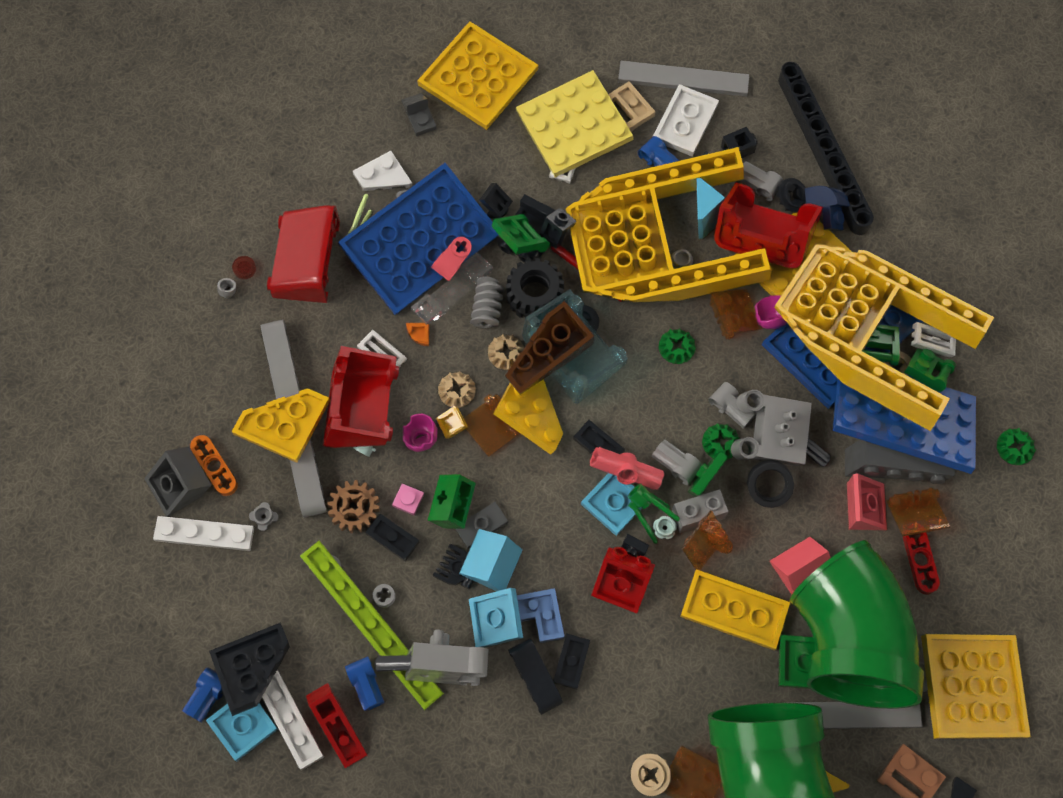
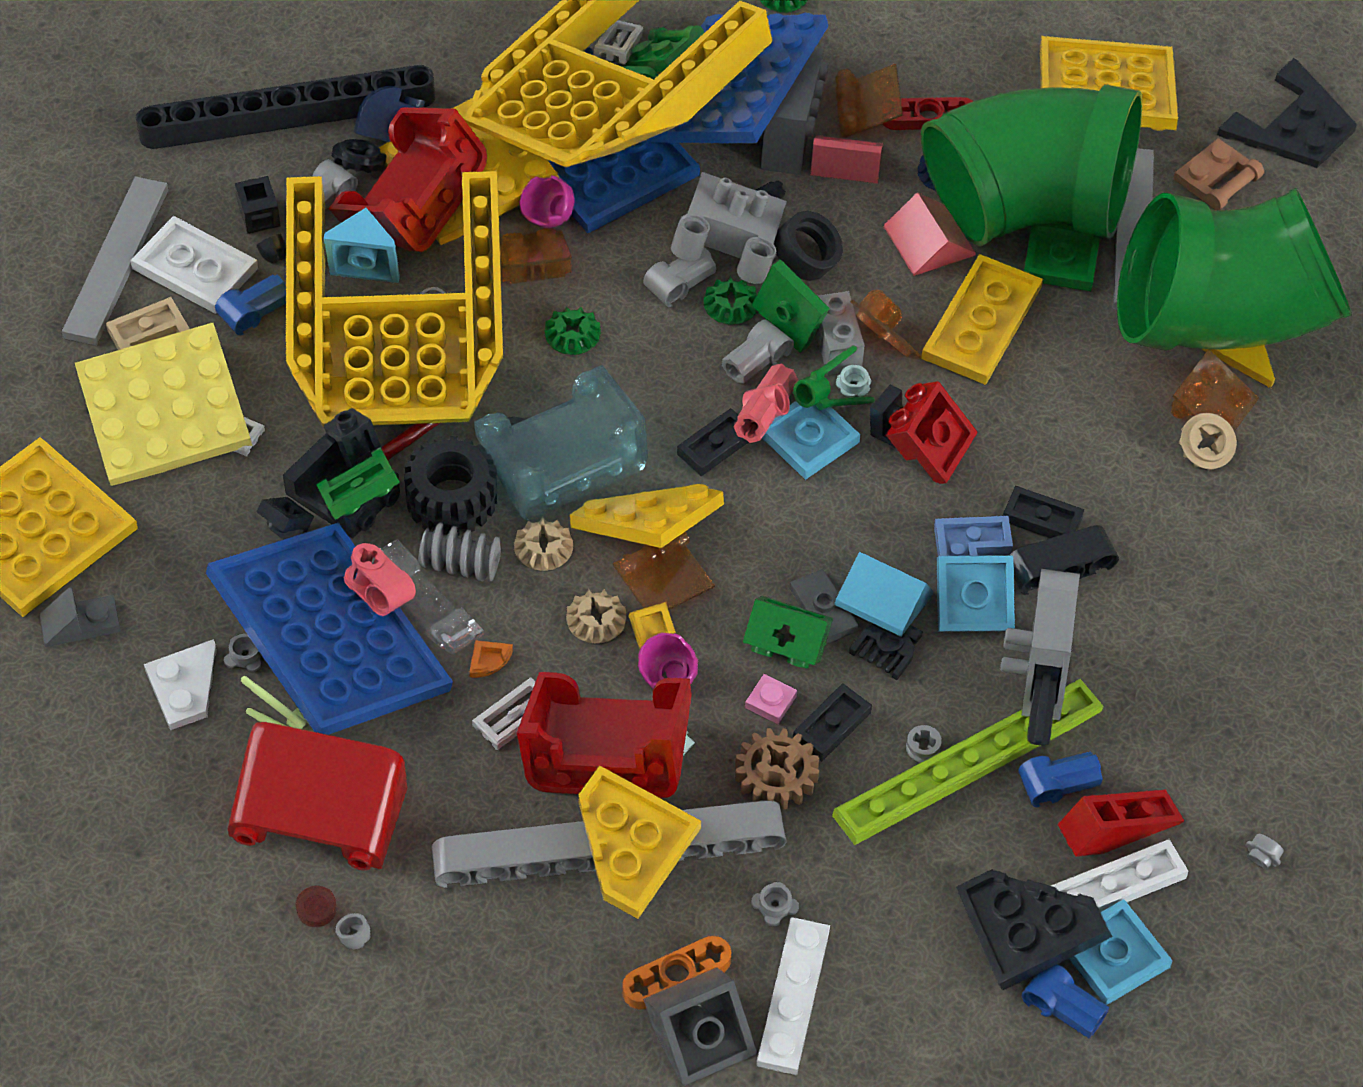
camera: 85 degrees left, 15 degrees down
(552, 346) = (566, 451): reddish brown wedge -> none

